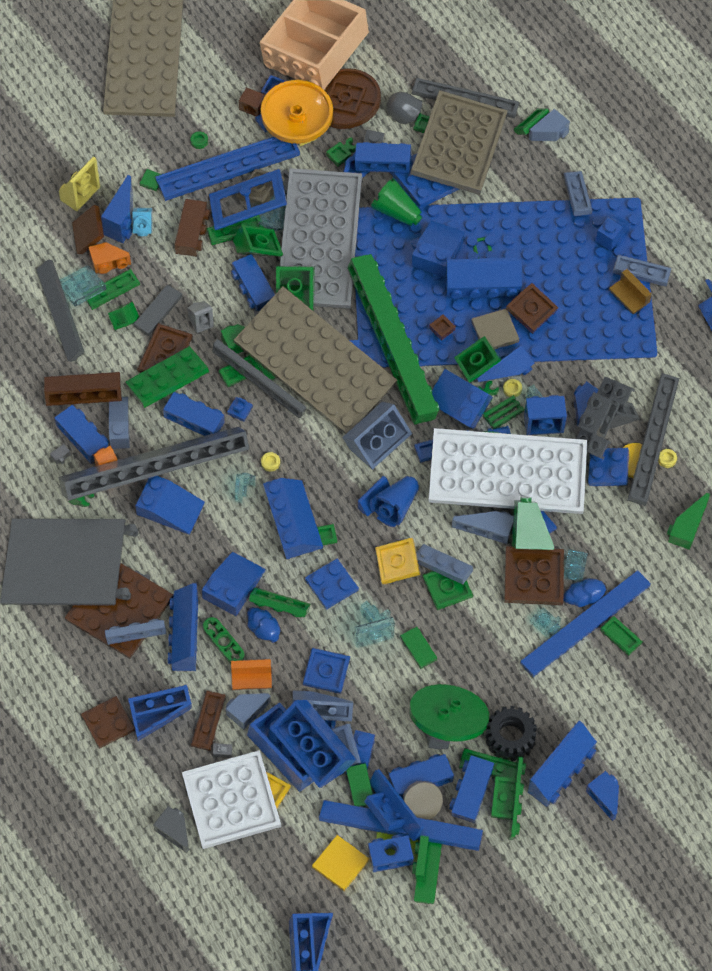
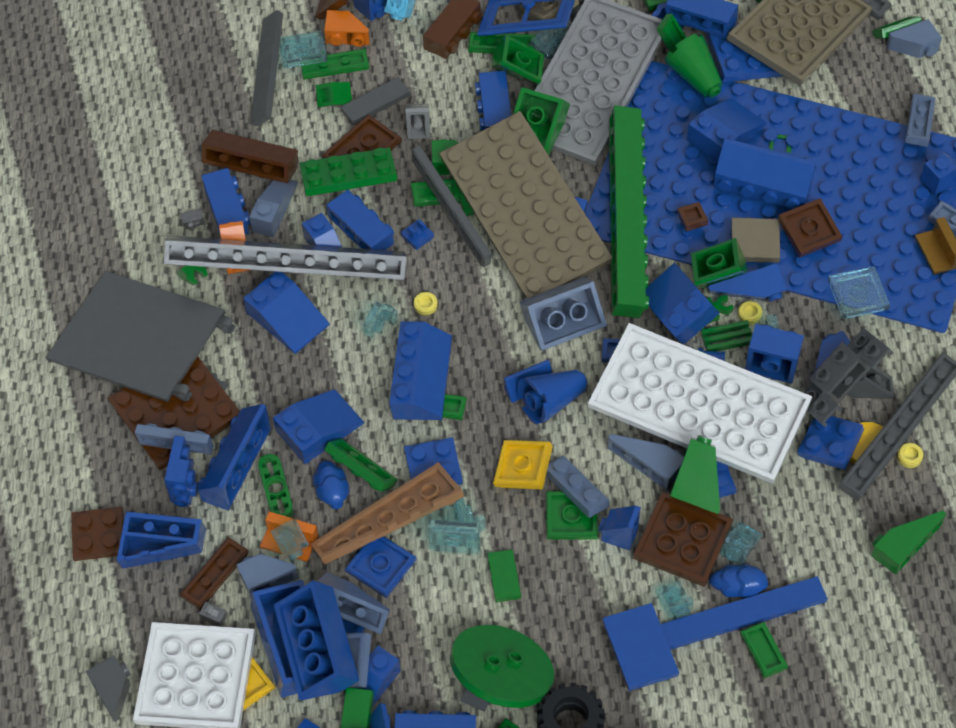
camera: 25 degrees right, 5 degrees down
(155, 658) = (180, 474): none -> blue plate
(168, 433) = (320, 232): none -> blue slope
(256, 677) = (290, 540): none -> clear light blue bracket
(324, 625) = (401, 507): none -> medium nougat wing
(368, 183) = (670, 32): none -> green tile
(488, 583) = (620, 526): none -> blue slope
(537, 664) = (640, 647): none -> blue tile
(585, 346) = (858, 292): none -> clear light blue tile

